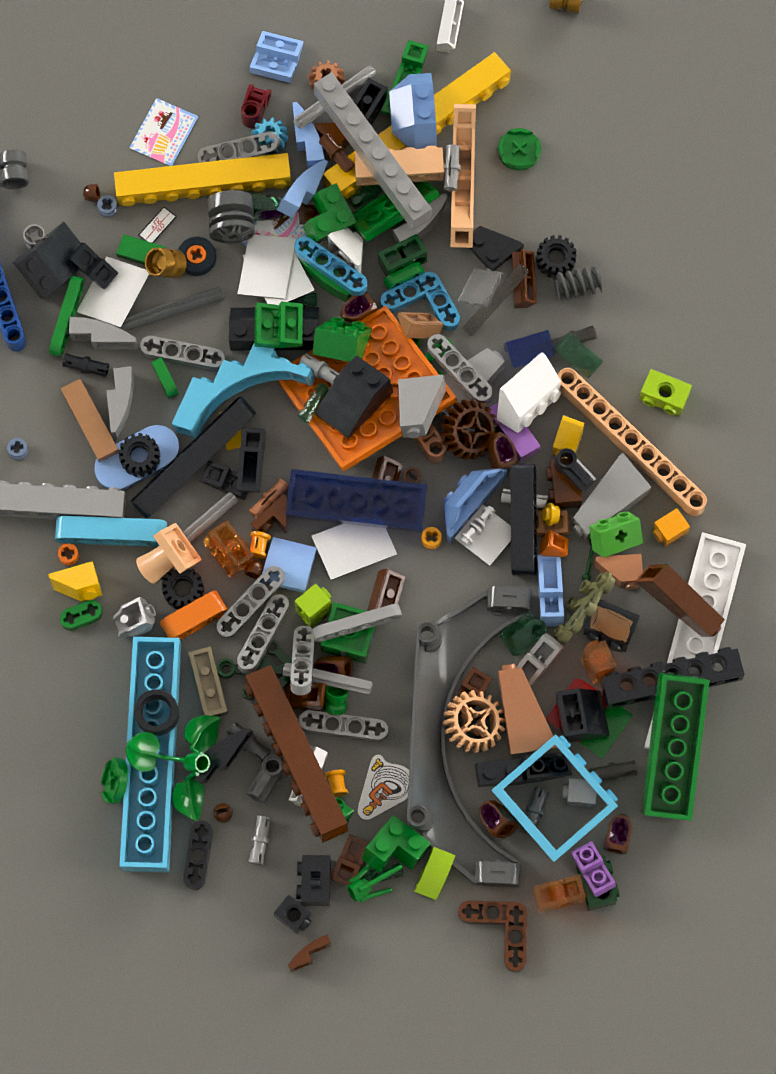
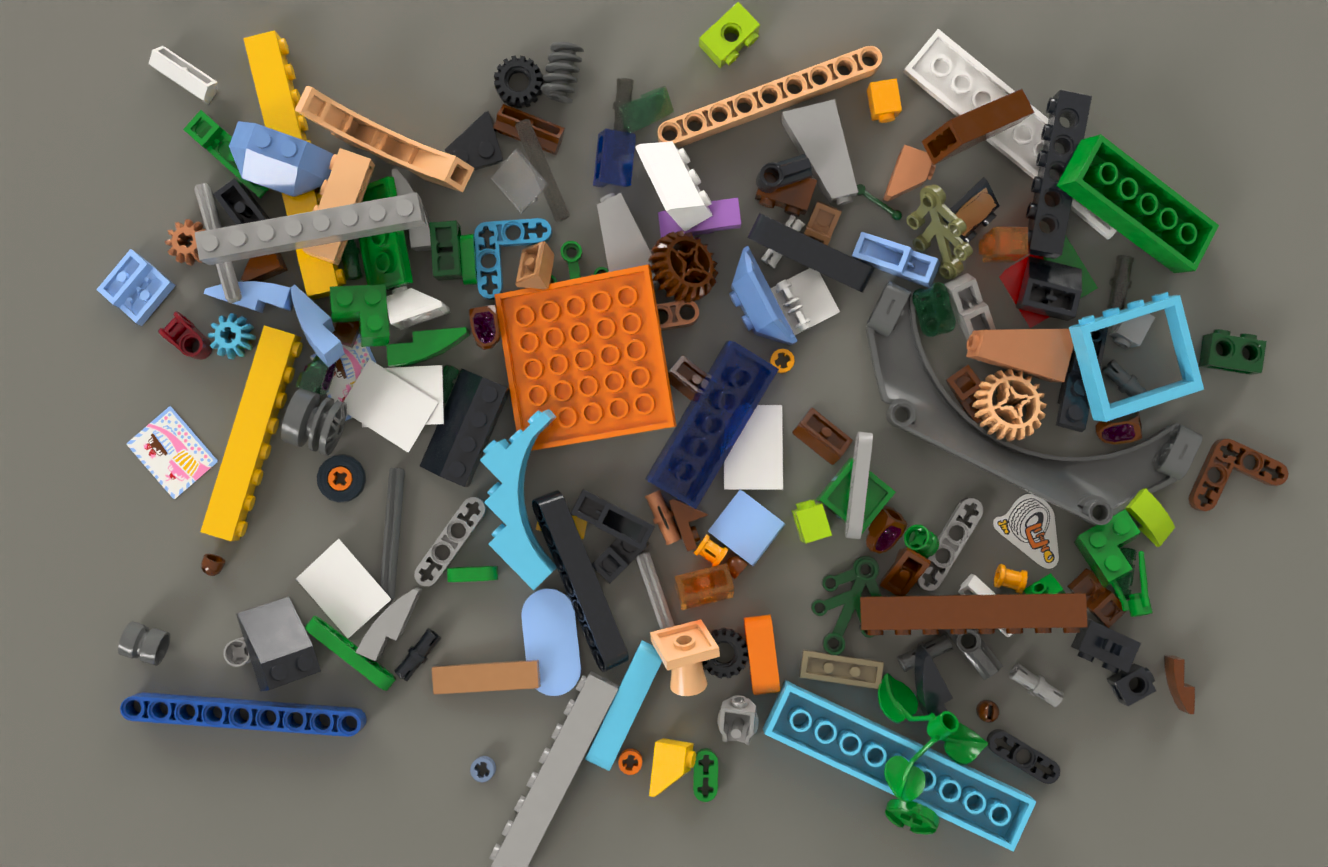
camera: 65 degrees left, 15 degrees up
(93, 266) = (303, 600): black slope -> none
(107, 199) = (238, 546): sand blue bush -> none
(120, 400) = (477, 633): light grey slope -> none
(135, 249) = (307, 538): green tile -> none
(139, 442) = (553, 656): black tyre -> none
(152, 695) = (885, 754): black tyre -> none
(157, 225) = (283, 506): white sticker -> none
(165, 262) = (337, 518): pearl gold wheel -> none
(238, 147) = (233, 378): light grey beam -> none
(247, 598) = (768, 588): light grey beam -> none
(266, 635) = (816, 586): light grey beam -> none
(278, 325) = (472, 424): green slope -> none
(302, 660) = (868, 561): light grey beam -> none
(313, 403) = (580, 424): clear green axle -> none
(320, 369) = (544, 399): light grey pin -> none
(328, 268) = (423, 332): dark azure beam -> none
(334, 680) = (899, 541): light grey axle -> none
(336, 153) = (290, 270): reddish brown axle -> none
(341, 339) = (518, 361): green slope -> none
(354, 397) = (597, 377): black slope -> none
(415, 472) = (707, 356): reddish brown hinge -> none
(419, 403) = (640, 309): light grey slope -> none
(452, 167) = (368, 148): light grey pin -> none
(462, 367) = (609, 241): light grey beam -> none
(502, 451) = (725, 242): rock -> none
(519, 149) = (371, 65): green tile -> none
(551, 514) = (816, 221): yellow plate -> none
(554, 545) = (848, 233): orange slope -> none
(559, 893) = (1231, 397): clear orange brick -> none
(568, 435) = (740, 164): yellow slope -> none
(593, 869) = (1227, 351): medium lavender slope -> none
(616, 534) = (871, 161): bright green brick -> none
(618, 834) = (1197, 308): rock -> none

